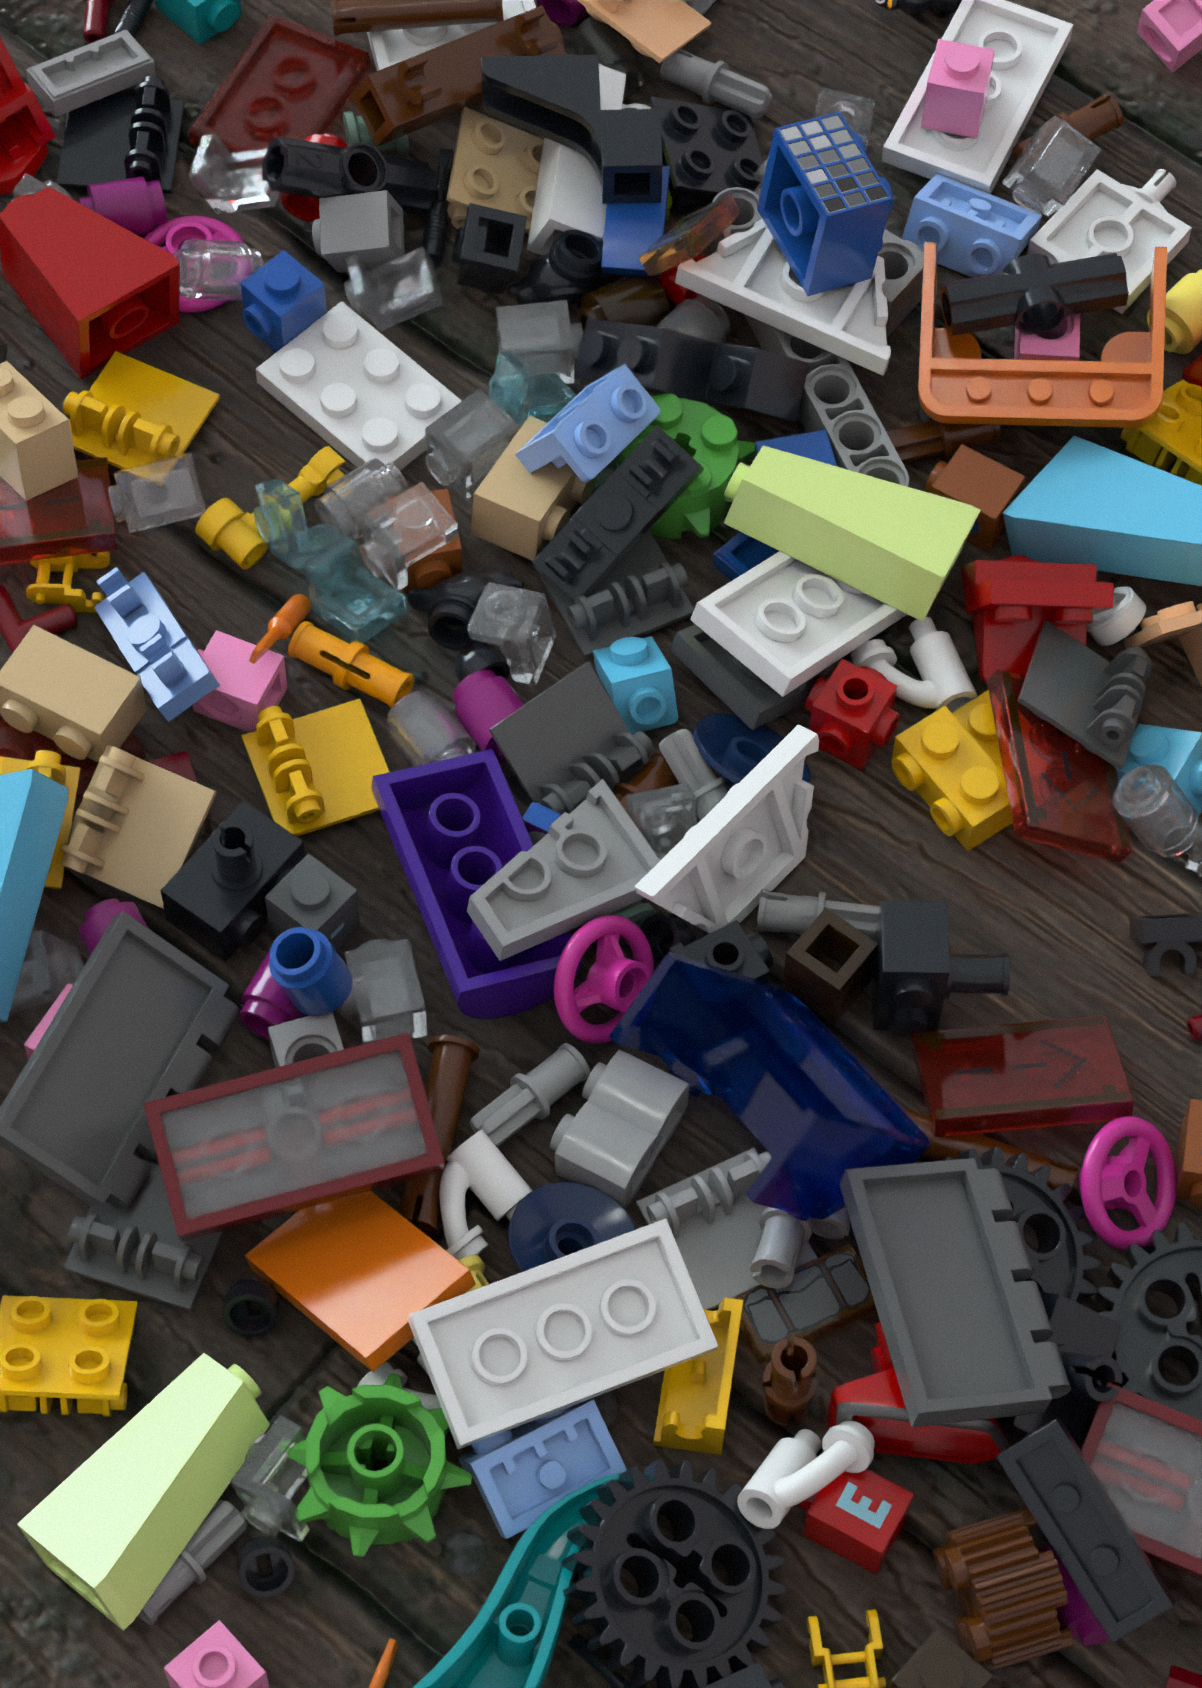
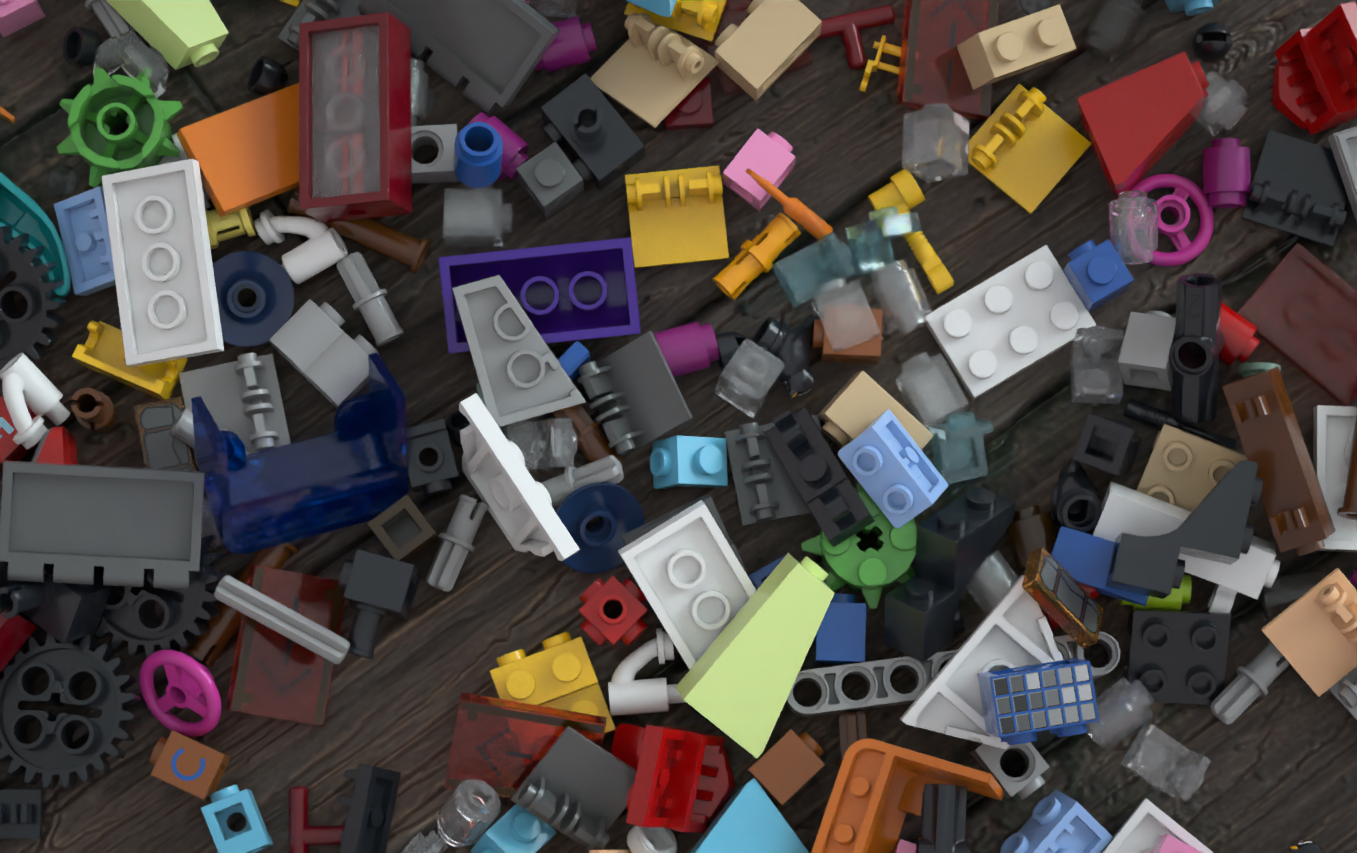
camera: 105 degrees right, 20 degrees up
(154, 643) = (799, 112): medium blue plate -> none
(230, 180) = (1240, 266): clear bracket -> none
(427, 730) = (676, 299): clear brick -> none
(540, 337) = (1015, 464): clear brick -> none
(610, 980) = (425, 370): dark pink piece -> none
(998, 1059) = (282, 619): none -> light grey axle

